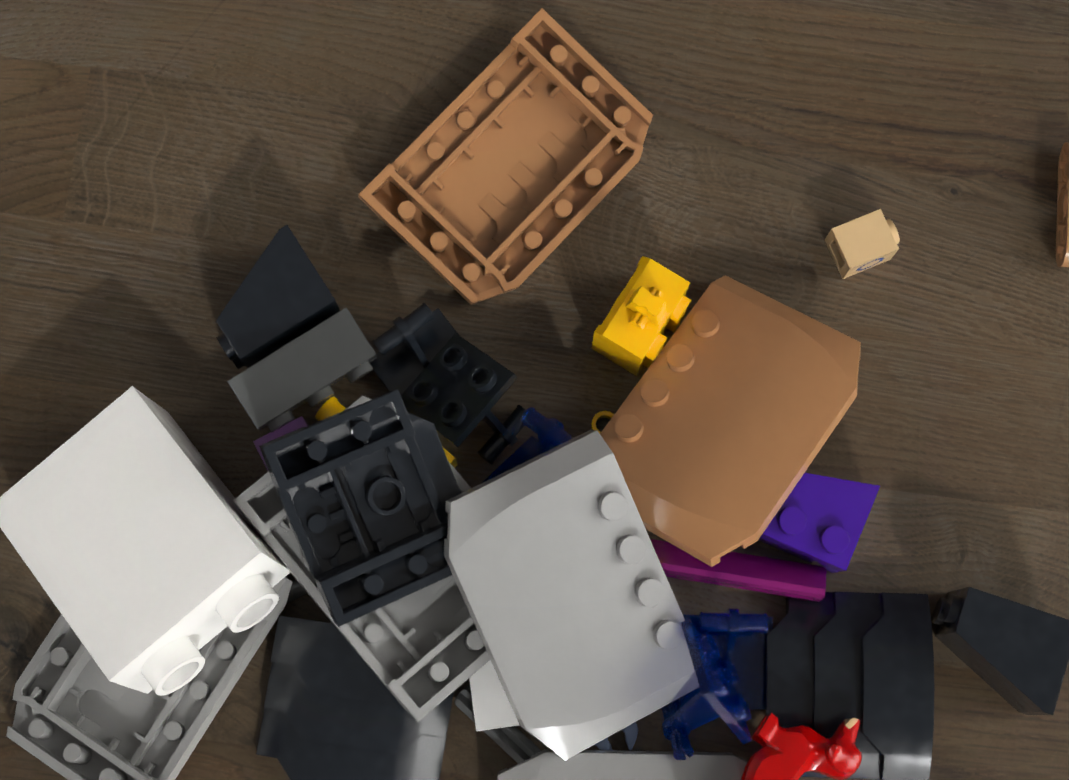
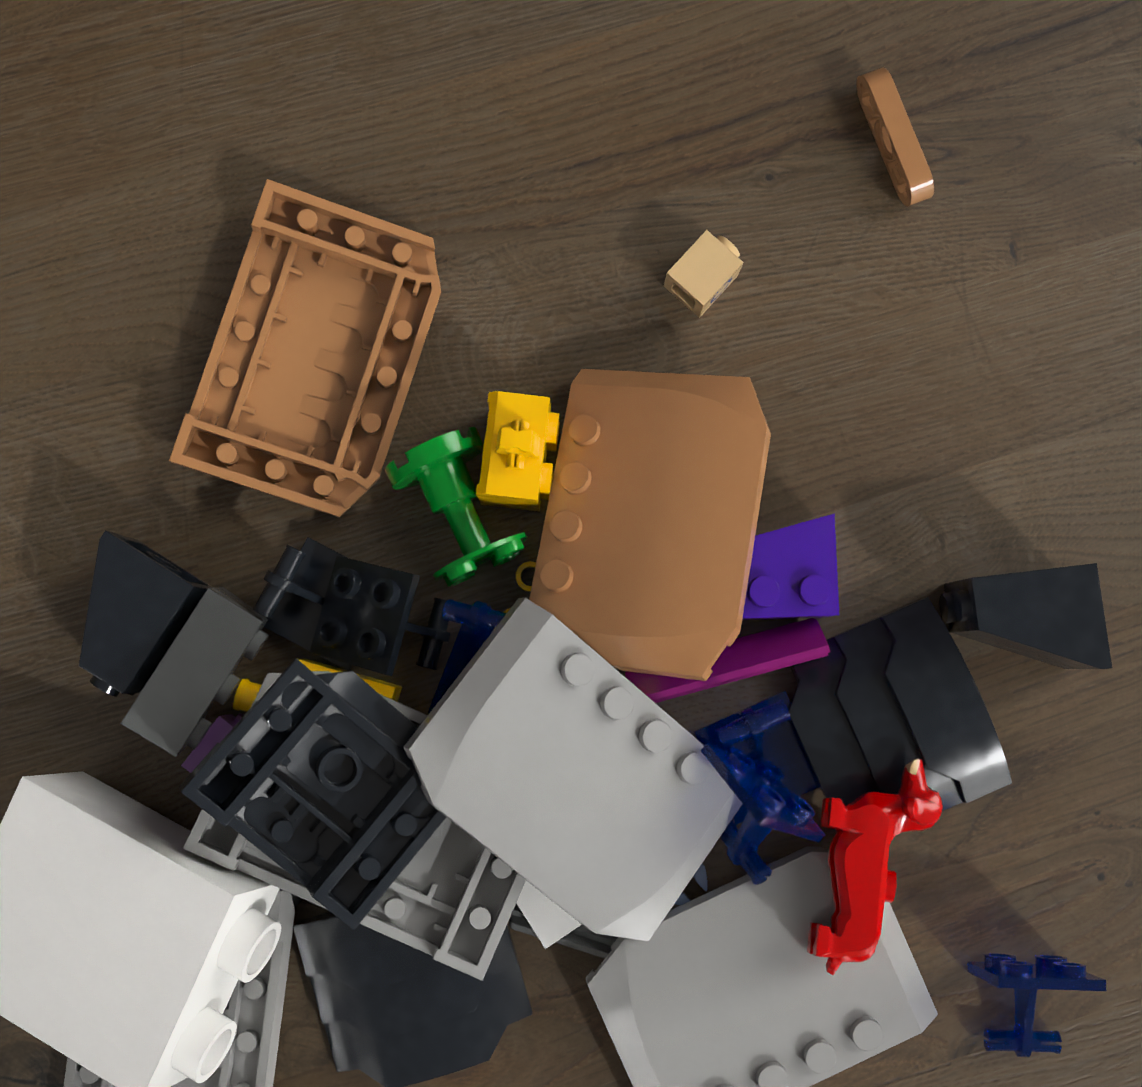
camera: 25 degrees left, 5 degrees up
(572, 321) = (449, 488): none -> green piece

